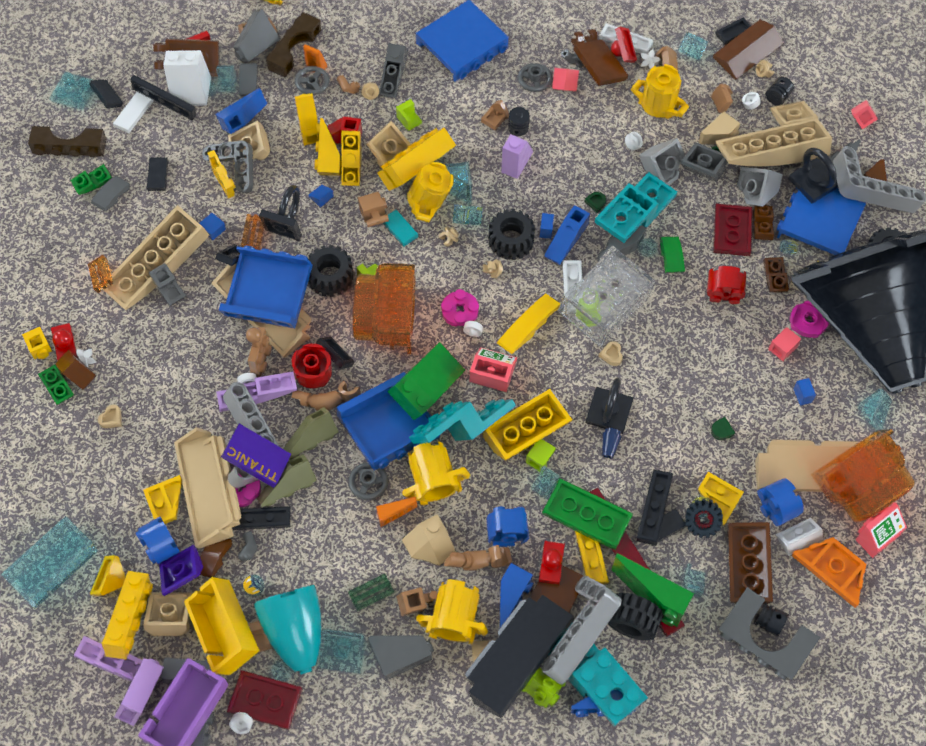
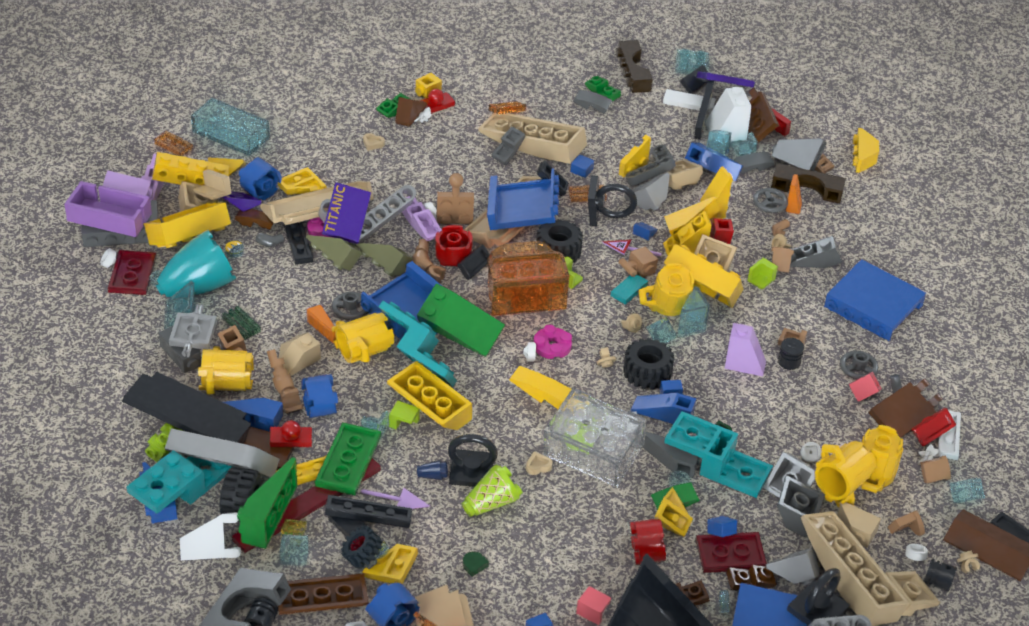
camera: 75 degrees right, 20 degrees down
(56, 638) = (171, 145): none -> clear orange tile
(124, 66) = (726, 79): none -> dark purple tile
(157, 174) = (625, 125): black tile -> none
(168, 590) = (215, 185): none -> tan panel
(218, 97) = (719, 141): none -> clear light blue brick
(272, 176) = (652, 192): none -> light grey slope
(337, 221) = (623, 245): none -> piece
(393, 93) = (782, 258): none -> medium nougat tile
(398, 637) = (193, 330): none -> light grey plate
(492, 369) = (490, 369): coral slope -> none
(638, 472) = (406, 499): none -> lavender piece
(651, 396) = (492, 492): none -> lime cone
(673, 573) = (294, 527): none -> clear yellow tile
(677, 652) = (208, 540): none -> white flag
(682, 117) = (843, 471): none -> yellow container
(693, 261) = (673, 514): none -> yellow slope
(712, 227) = (722, 526): none -> blue piece

